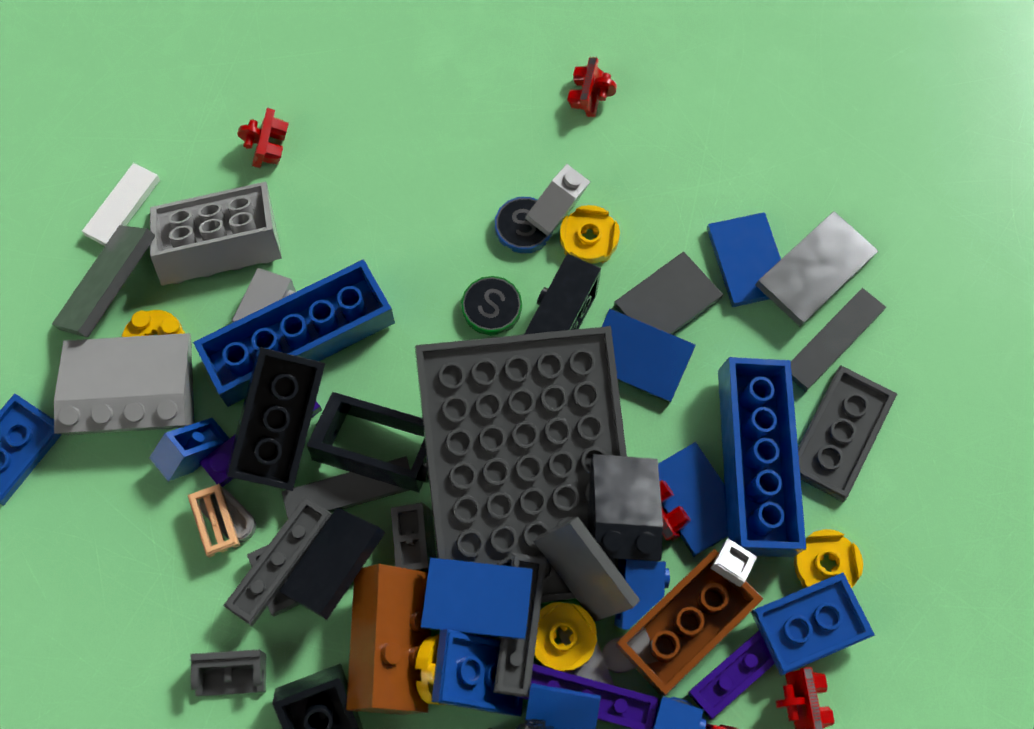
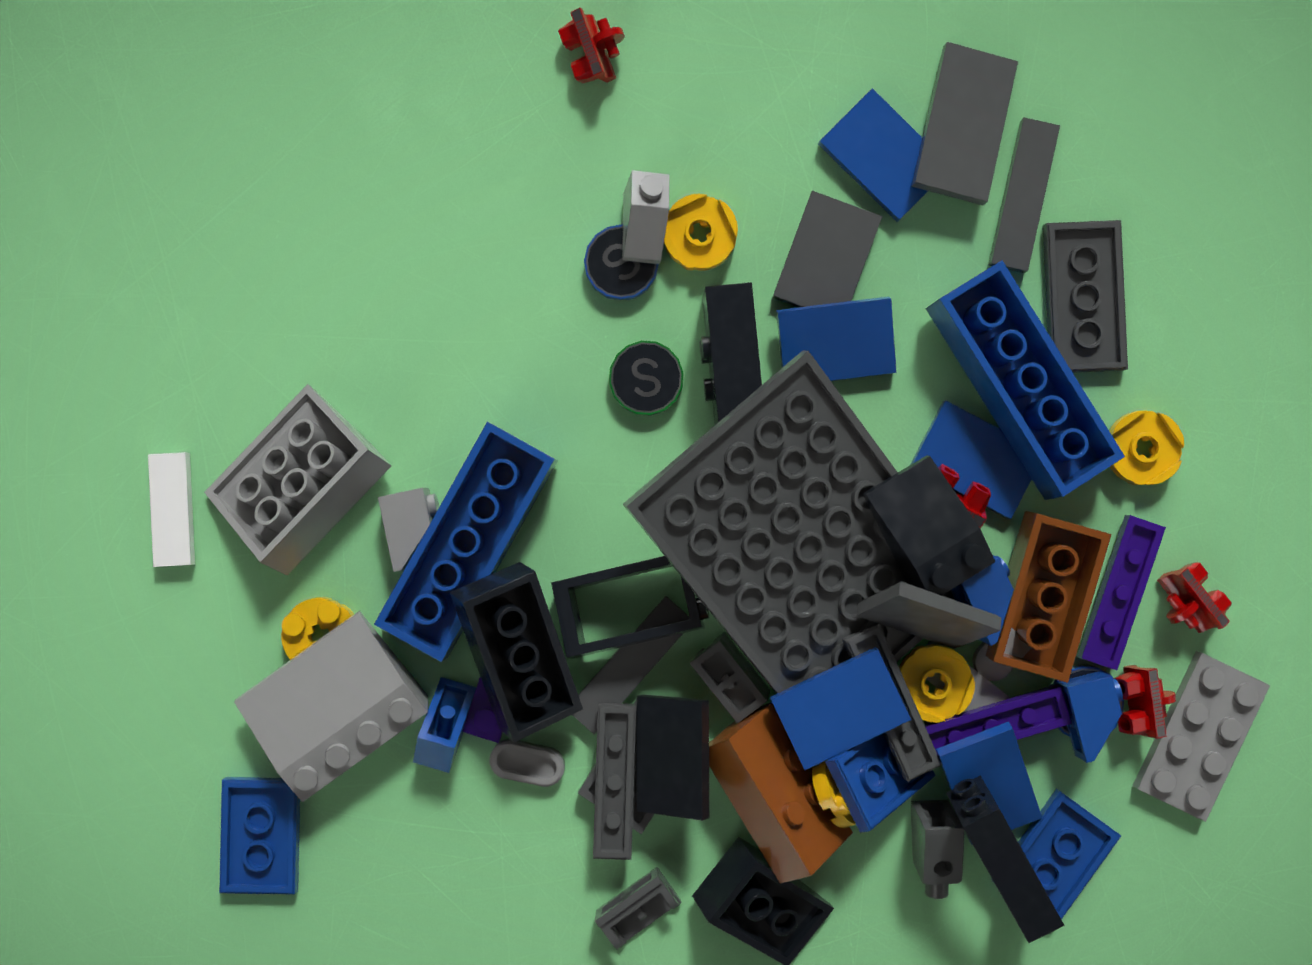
camera: 30 degrees left, 20 degrees up
(103, 280) = (223, 610): dark grey tile -> none
(222, 545) = (532, 770): light nougat tile -> none
(270, 127) = (267, 320): red hips -> none
(733, 562) = (1065, 517): tile -> none
(812, 623) = (1165, 522): blue tile -> none

